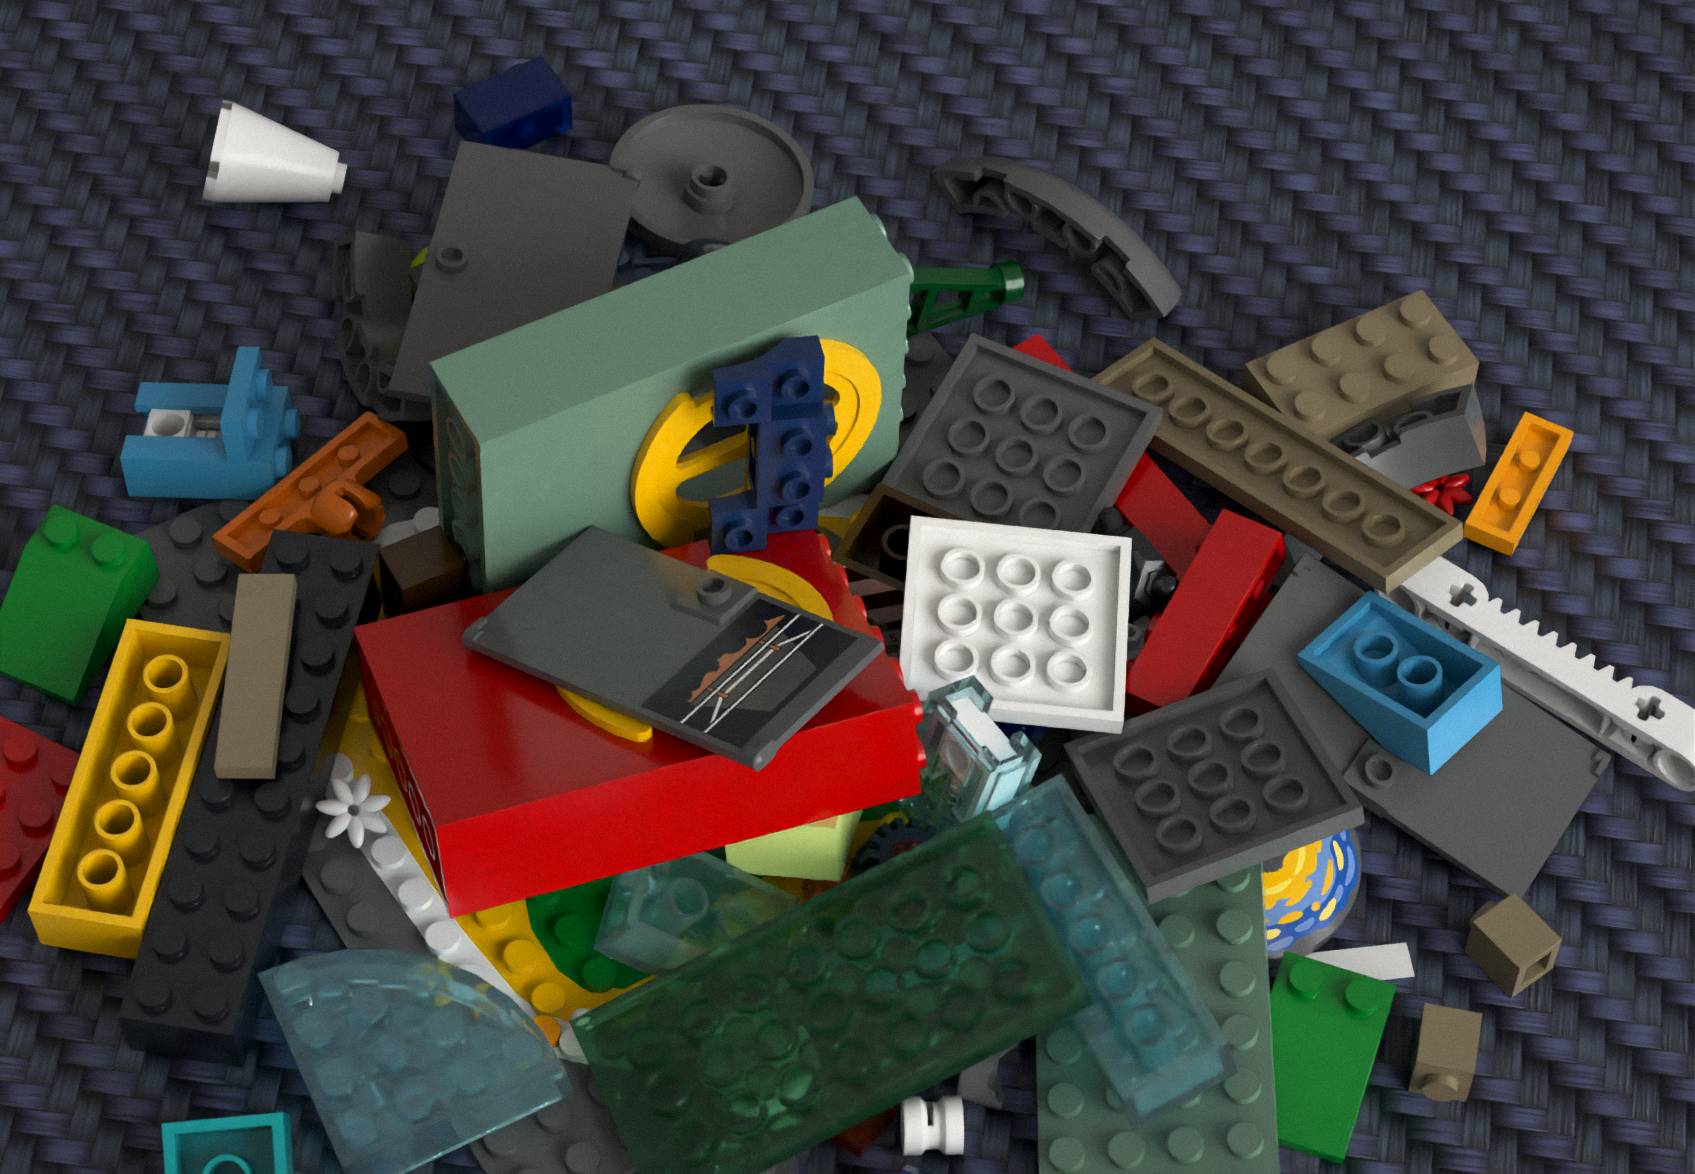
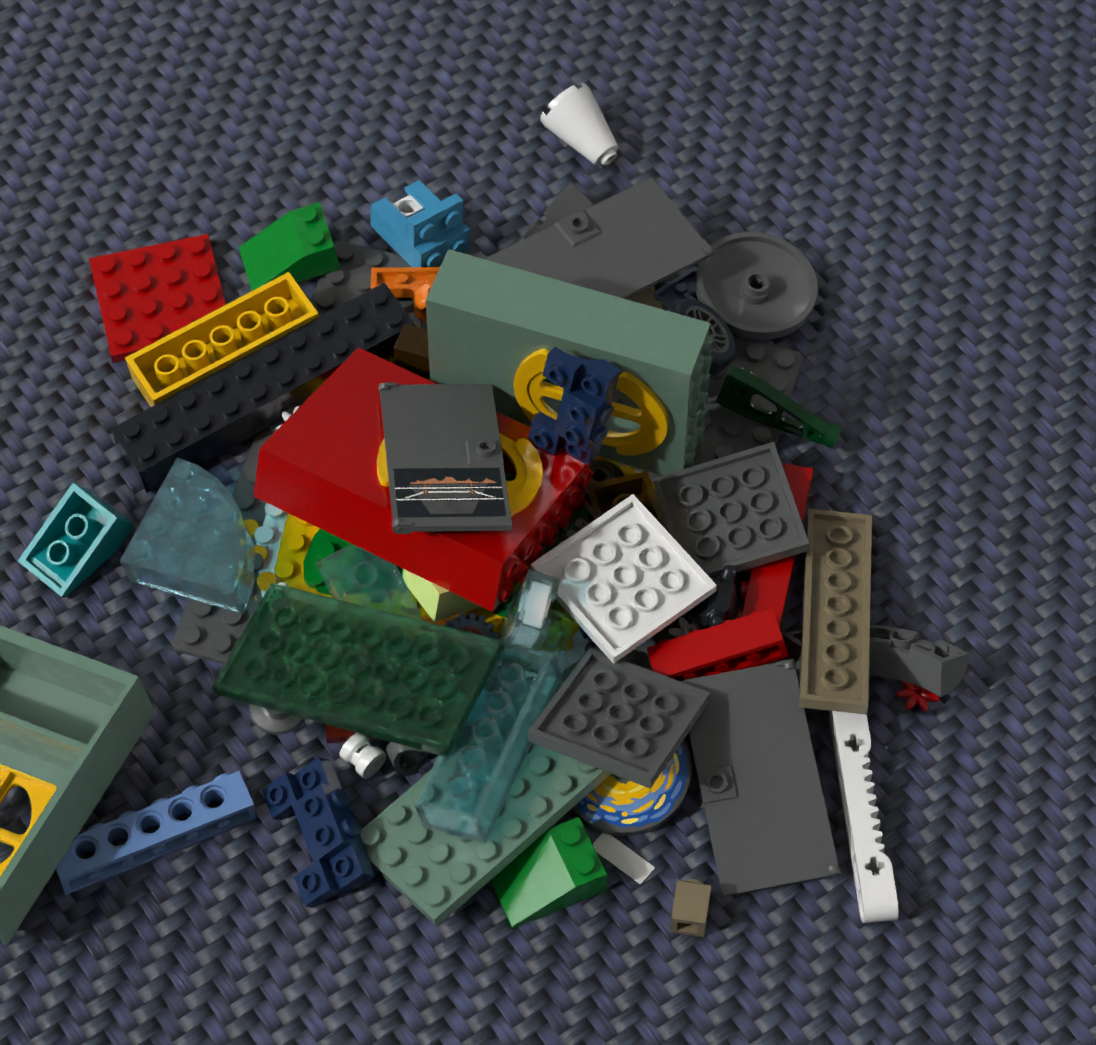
camera: 50 degrees right, 5 degrees up
(256, 676) = (302, 335): dark tan tile -> none
(514, 107) = (716, 185): clear blue brick -> none
(1066, 218) = (891, 435): dark grey brick -> none
(1363, 367) = (940, 609): dark tan brick -> none
(1405, 681) = (766, 752): dark azure slope -> none
(1445, 1053) = (603, 924): dark tan brick -> none
(1517, 484) = (956, 721): light orange plate -> none

